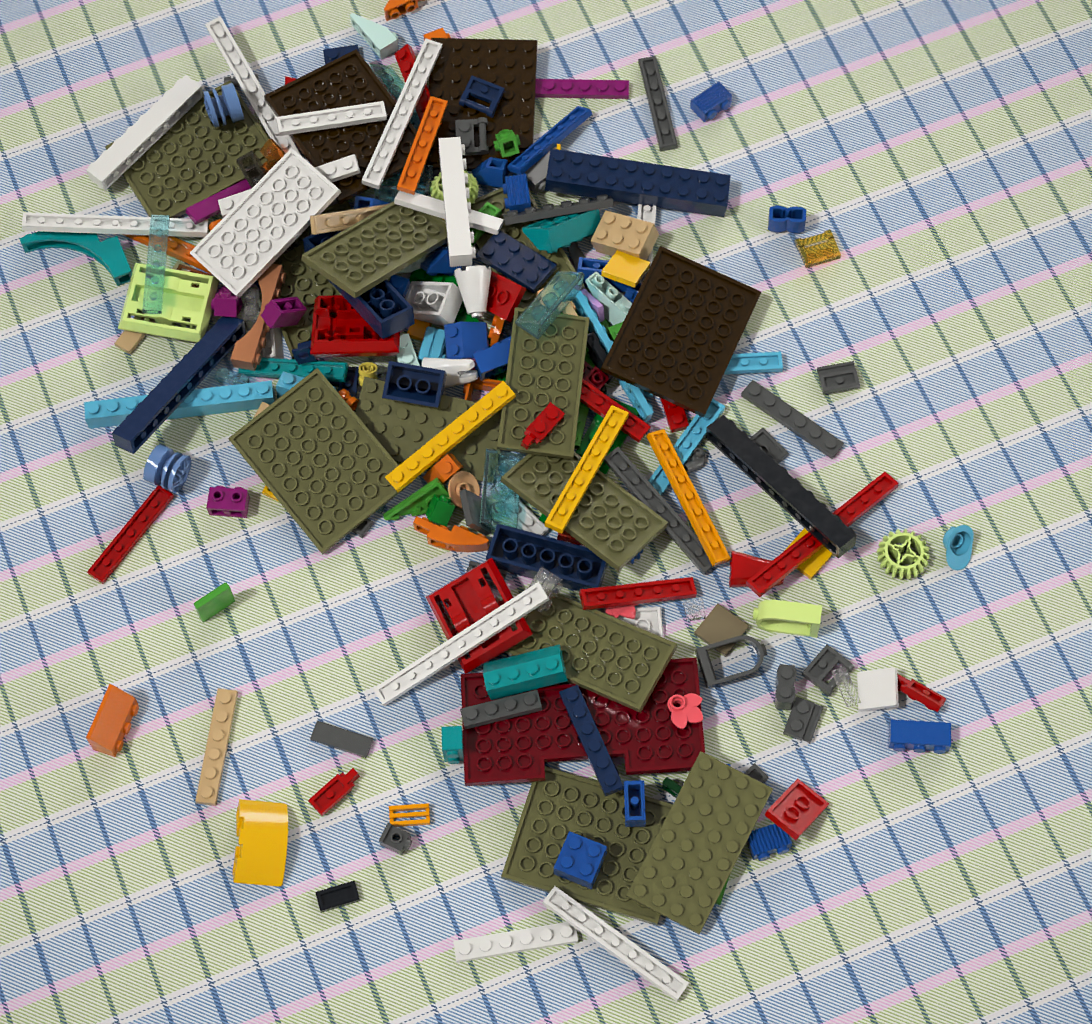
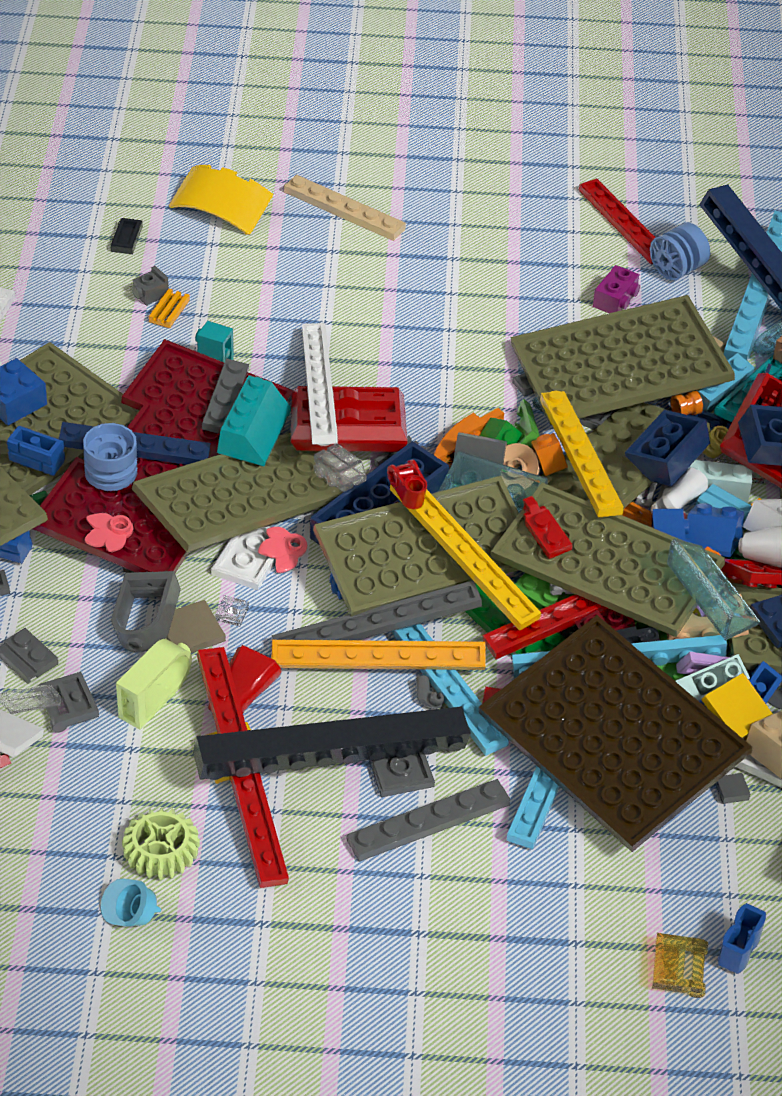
camera: 110 degrees right, 20 degrees down
(112, 721) = (417, 139): orange slope -> none
(214, 602) = (499, 237): bright green tile -> none
(333, 791) = (234, 263): red hinge -> none
(341, 739) = (287, 289): dark grey tile -> none
(559, 515) = (408, 484): none -> red piece
(627, 724) = (110, 456): none -> medium blue wheel
(637, 593) = (282, 559): red plate -> none
(785, 687) = (75, 647): dark grey brick -> none
(838, 377) = (459, 893): dark grey plate -> none

